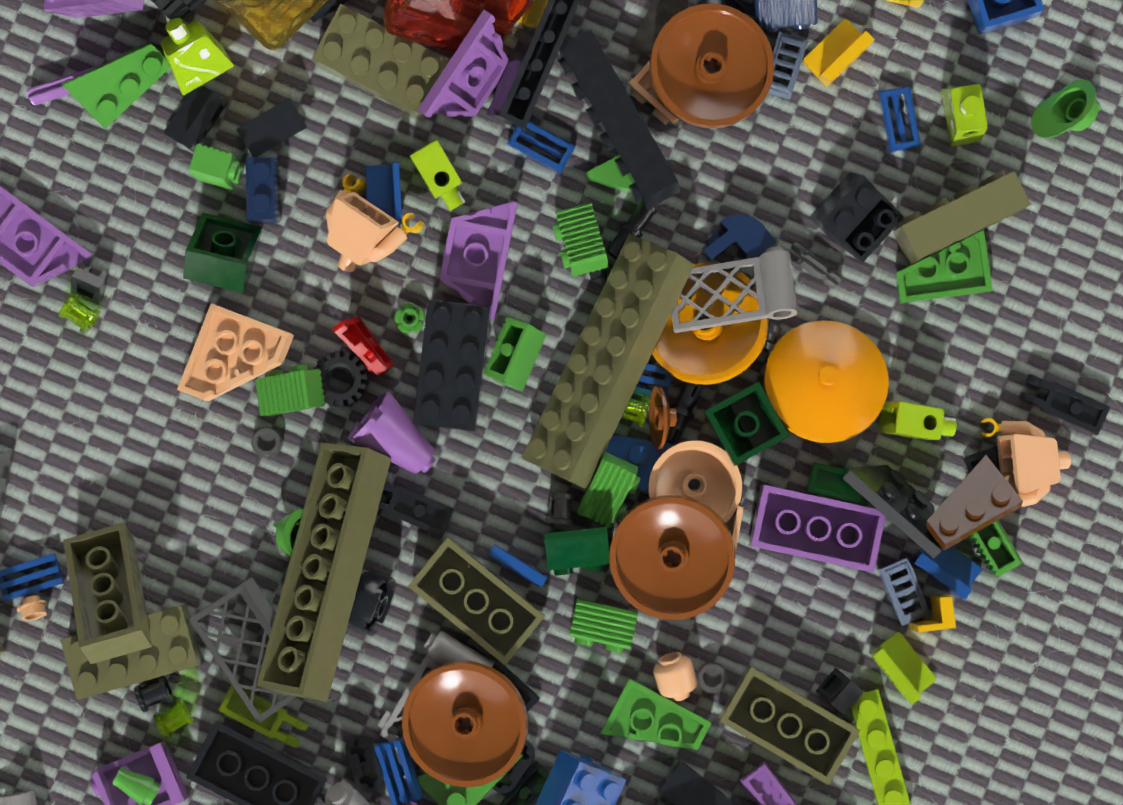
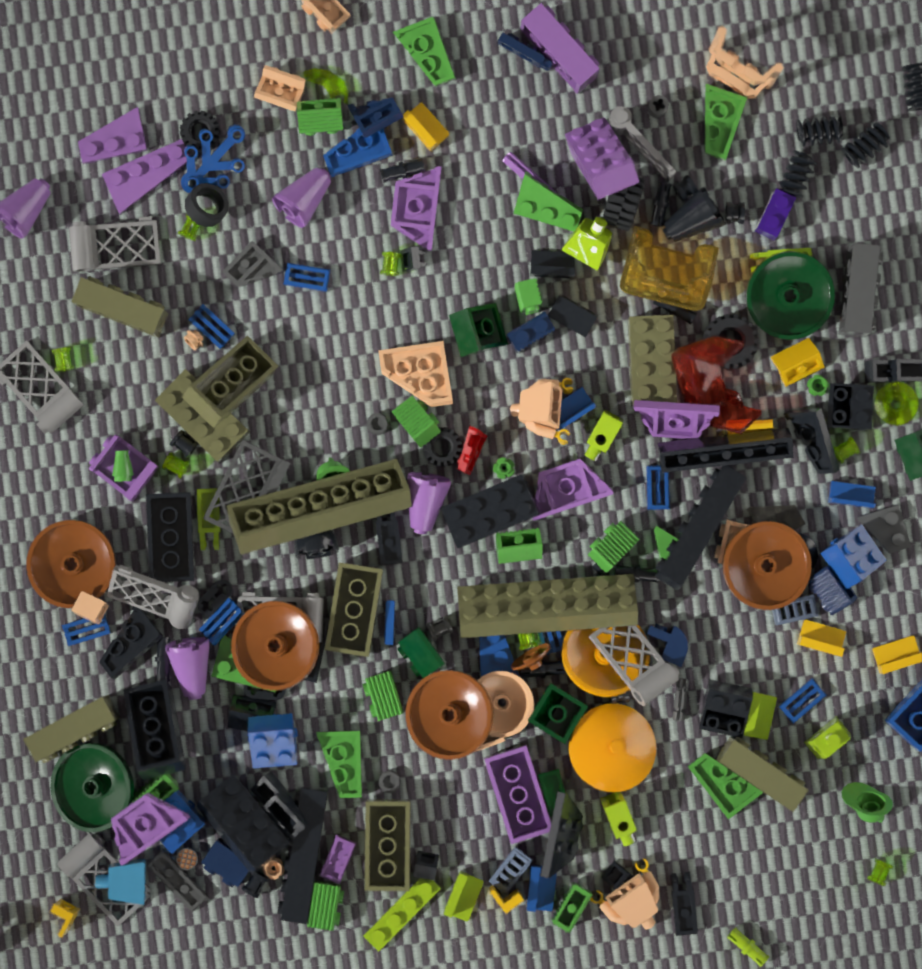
camera: 60 degrees right, 0 degrees up
(54, 405) = (325, 280): none -> blue tile
(608, 490) = (468, 651): bright green brick -> none
(675, 676) = (377, 758): light nougat head -> none
(890, 180) = (760, 716): none -> lime panel
(973, 505) = (587, 882): wing -> none

